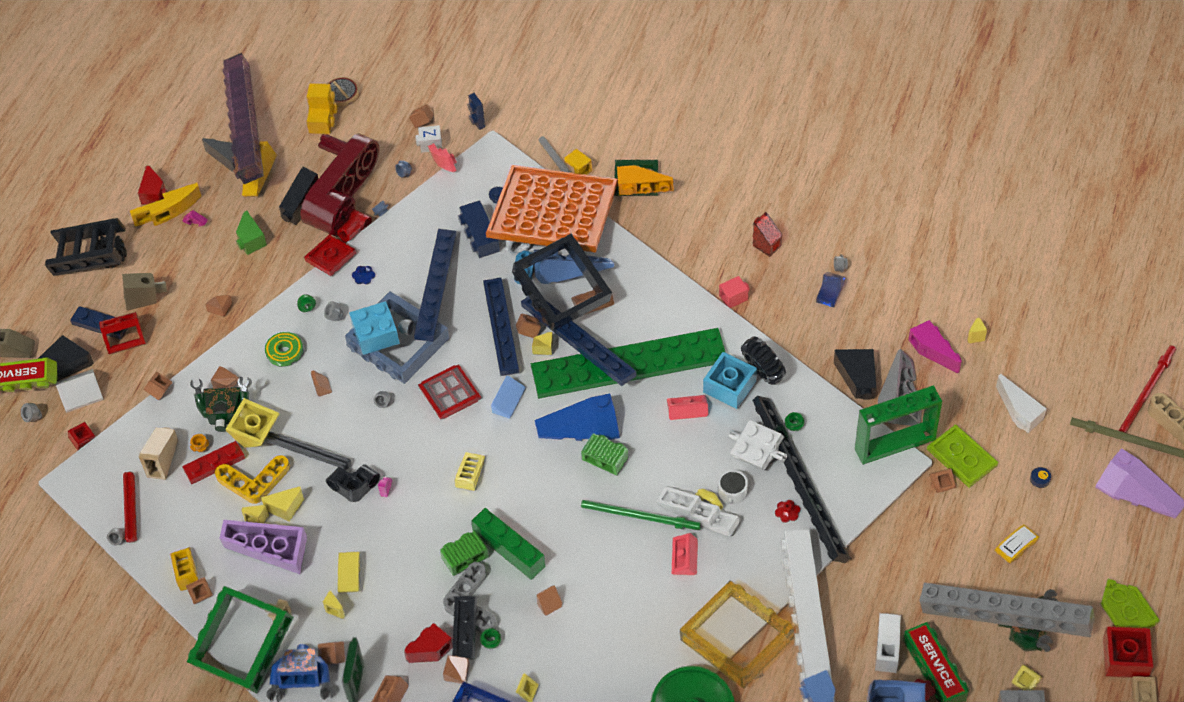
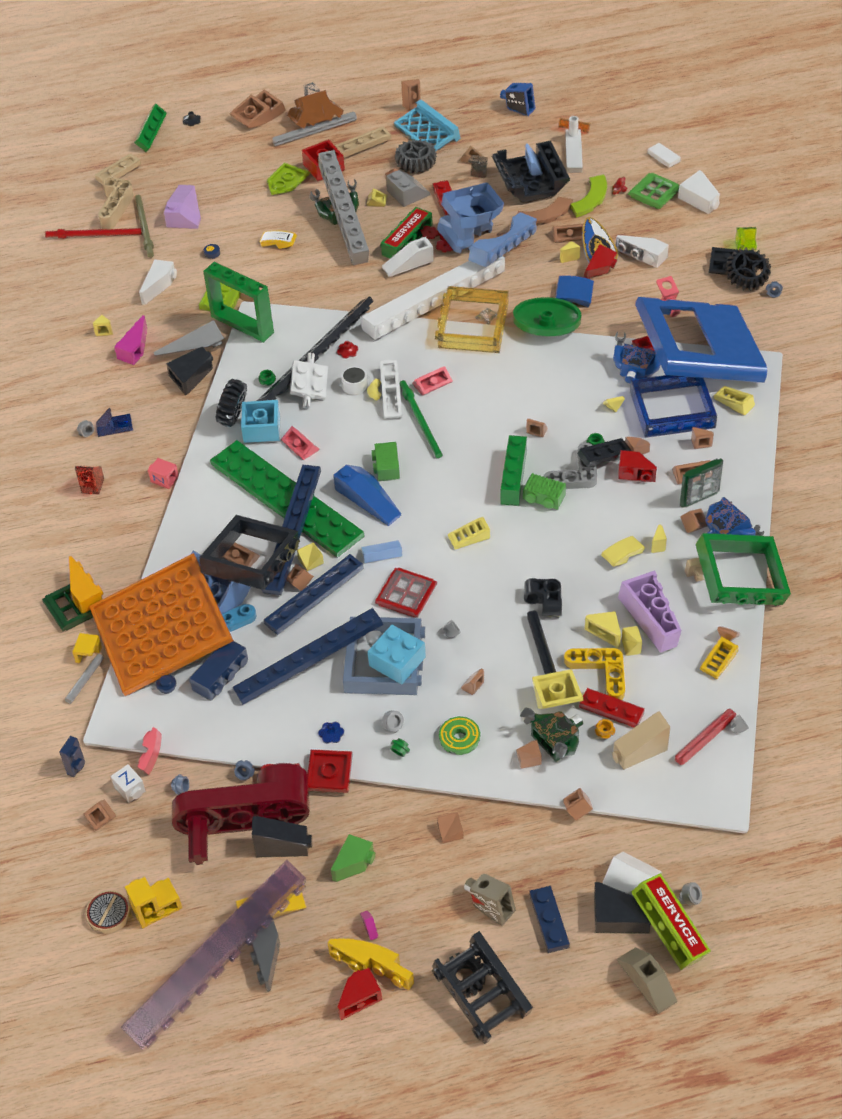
camera: 125 degrees left, 5 degrees down
(80, 435) = (675, 833): red slope -> none
(120, 323) = (546, 880): red tile -> none
(384, 486) = (531, 572): dark pink tile -> none

